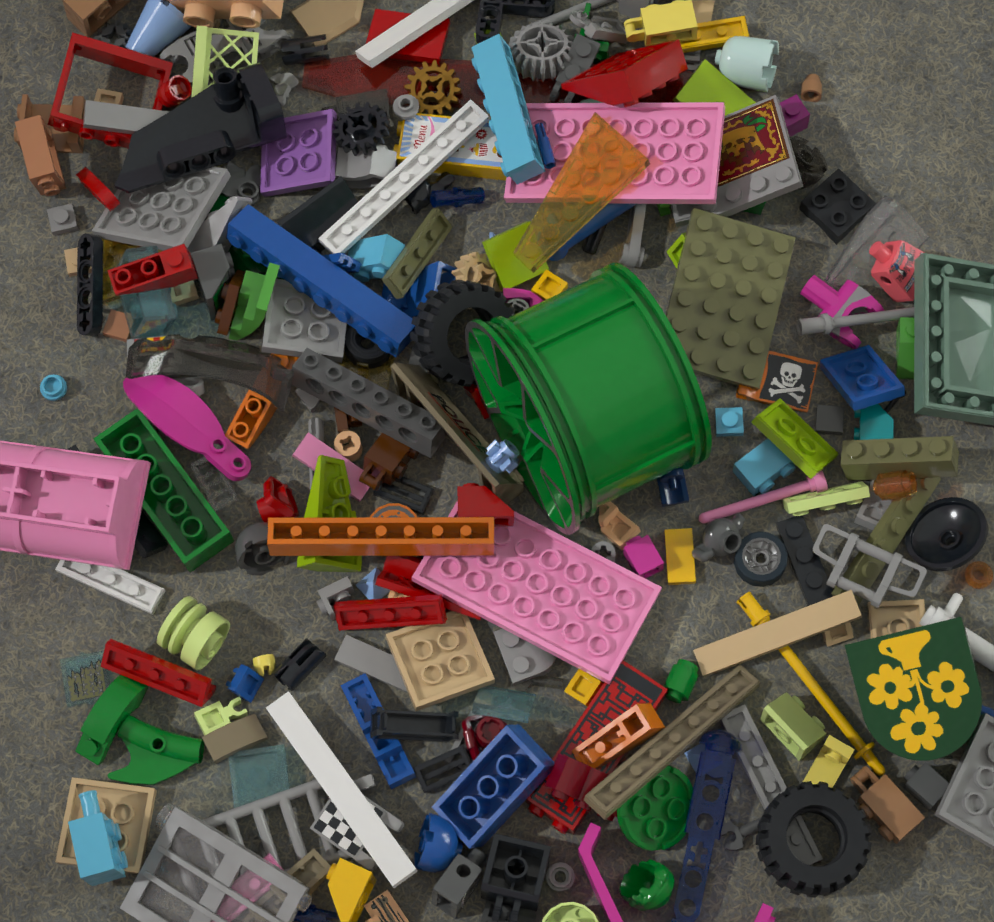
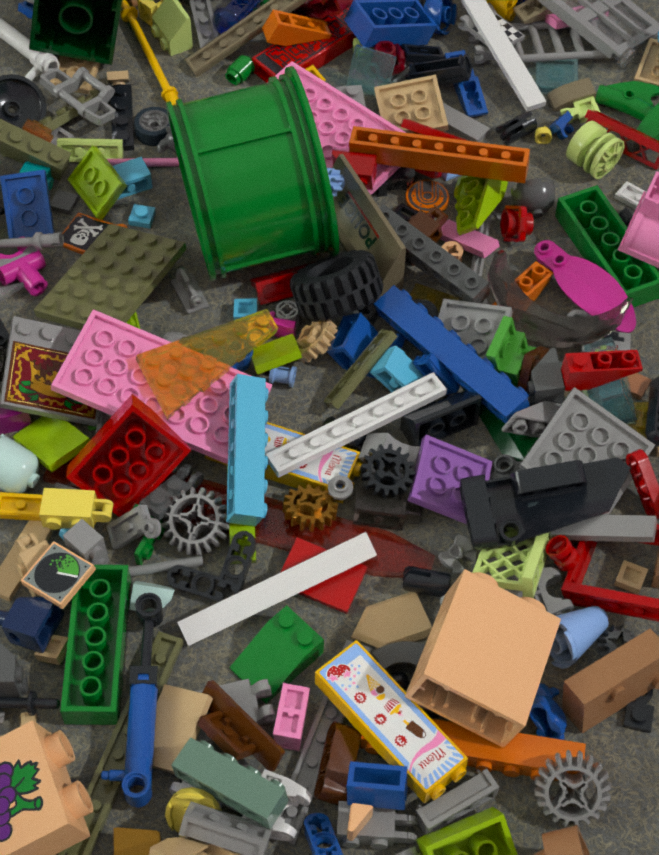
camera: 175 degrees left, 15 degrees down
(457, 197) = (312, 415): clear blue pin -> none
(545, 147) = (223, 407): blue pin -> none
(777, 633) = (161, 74): tan tile -> none

